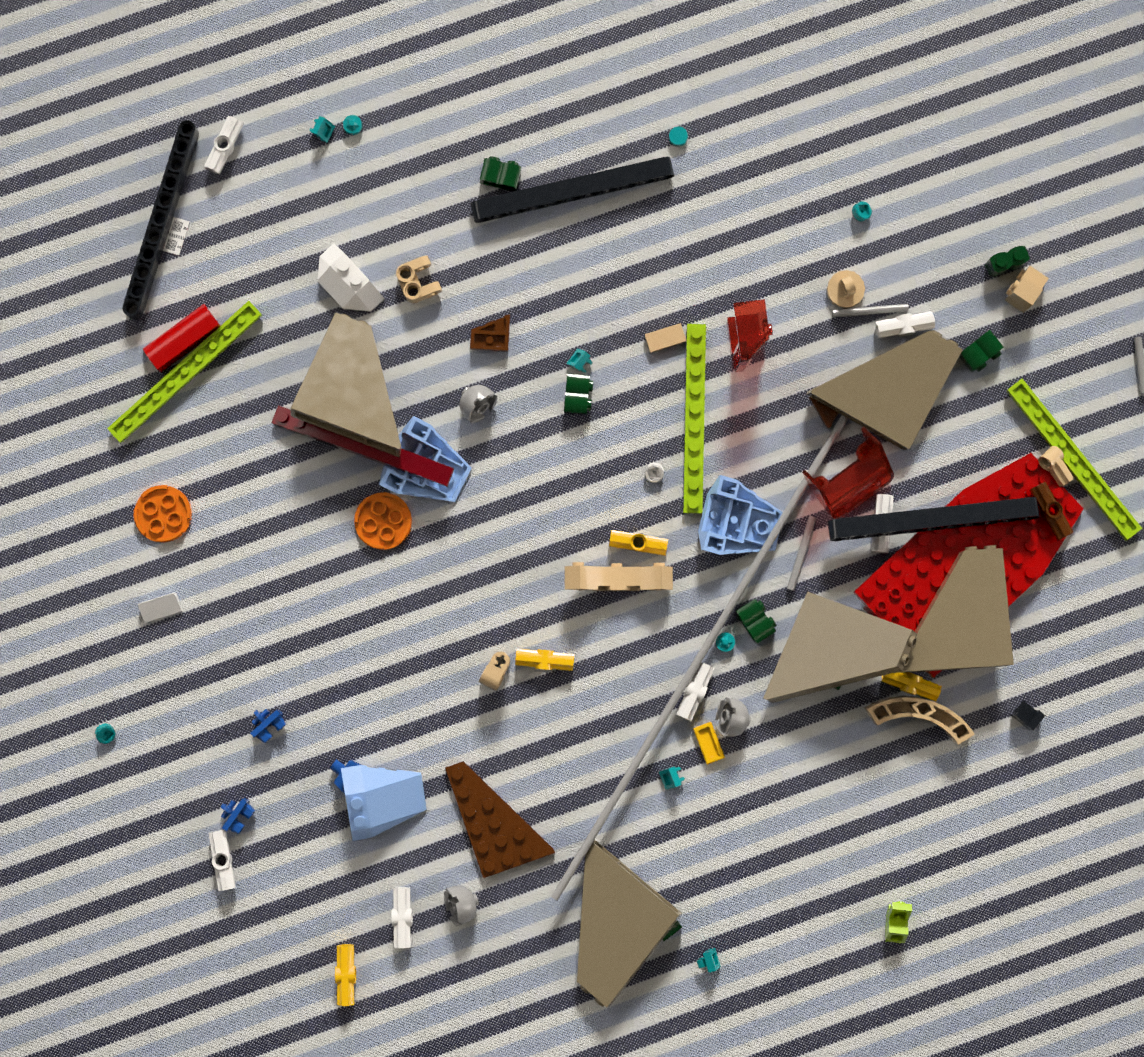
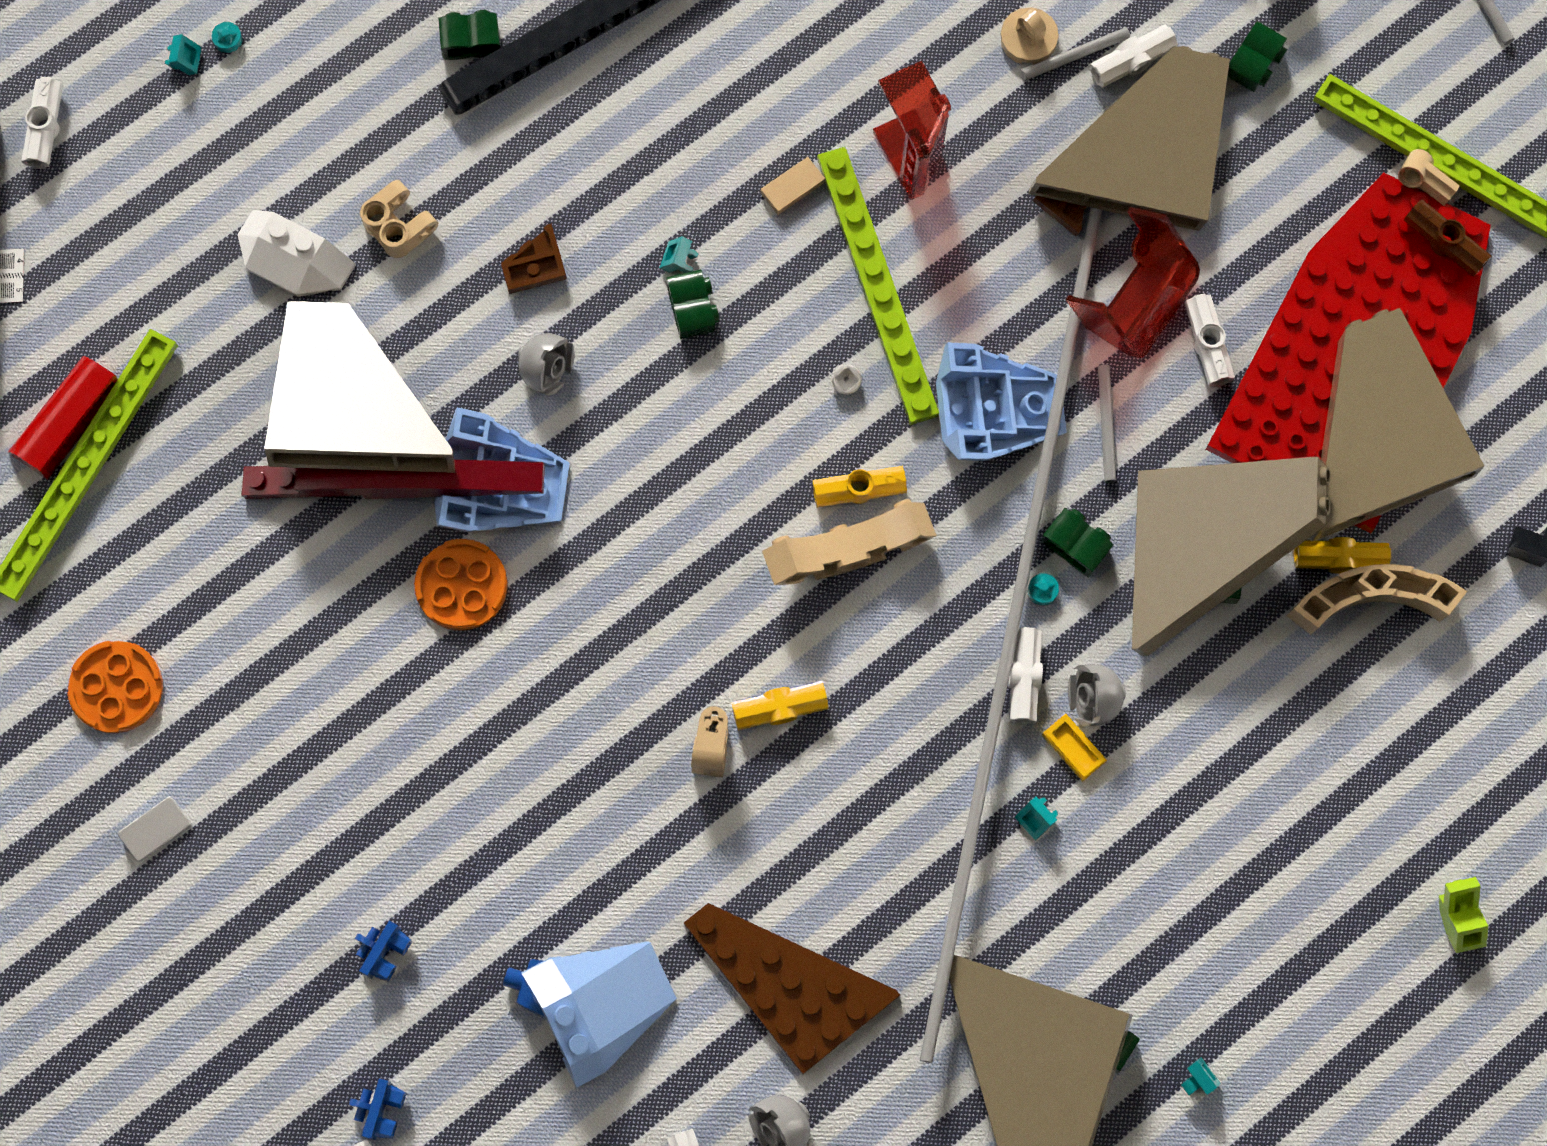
camera: 20 degrees left, 10 degrees down
(105, 733) = (126, 1054): teal tile -> none
(933, 519) = (1281, 303): black beam -> none

